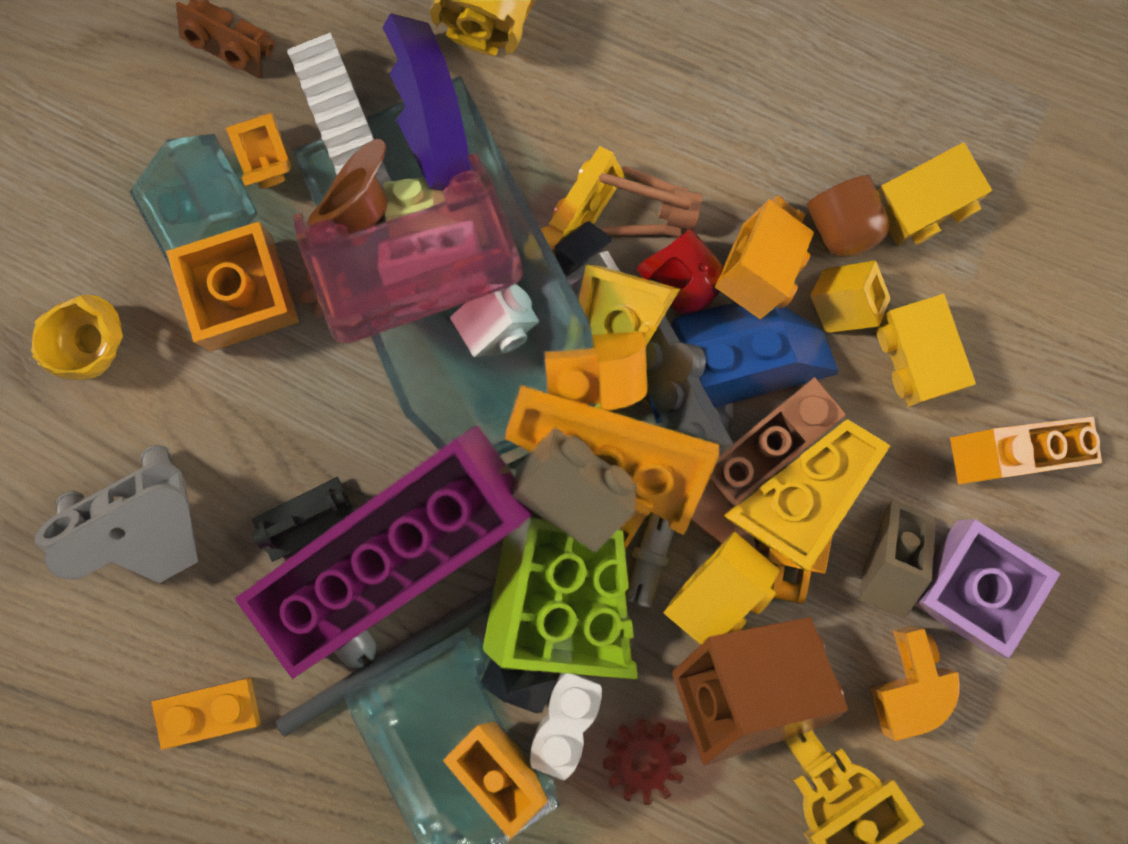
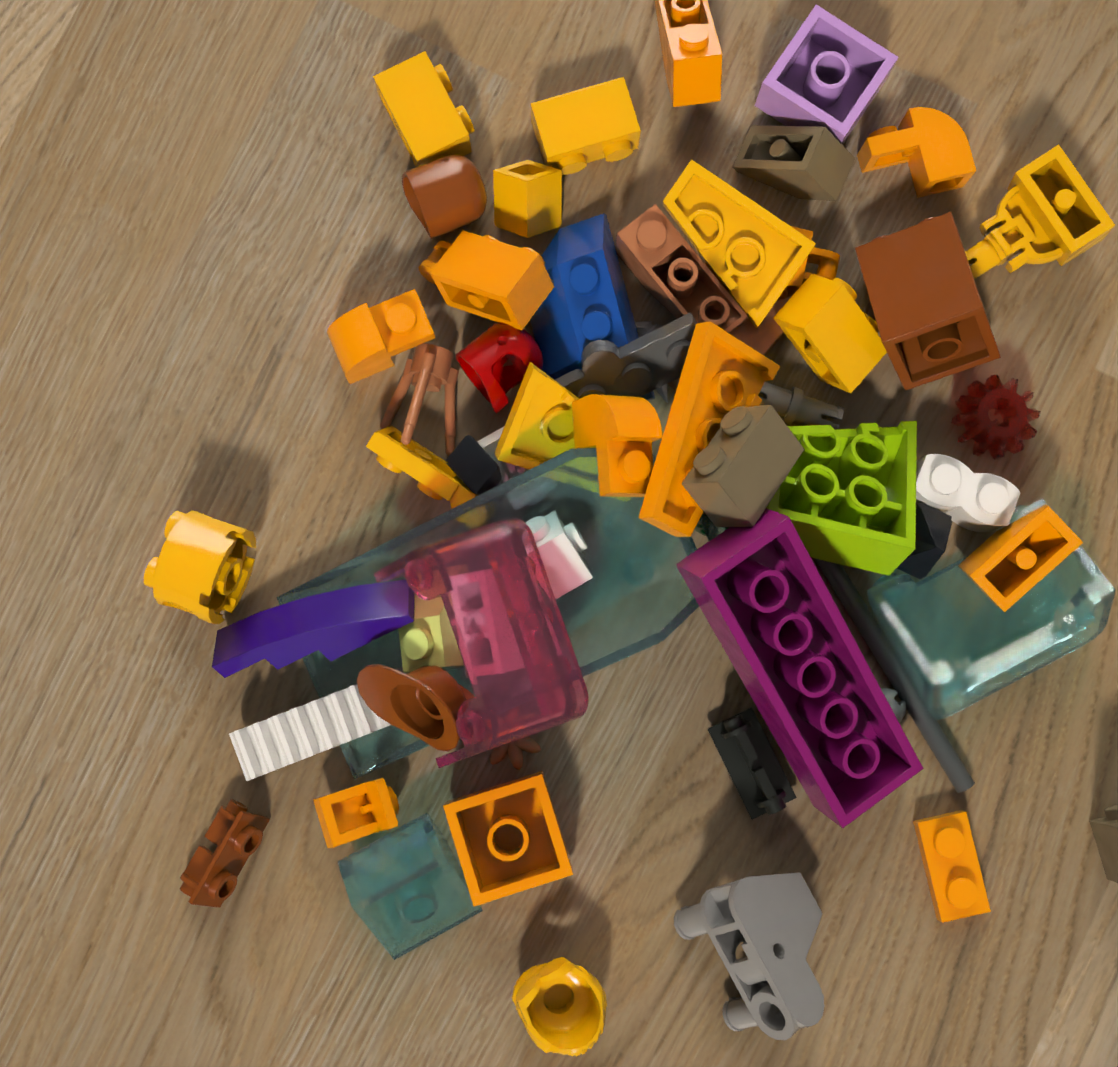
camera: 90 degrees left, 0 degrees up
(707, 153) = (372, 335): none -> light orange brick

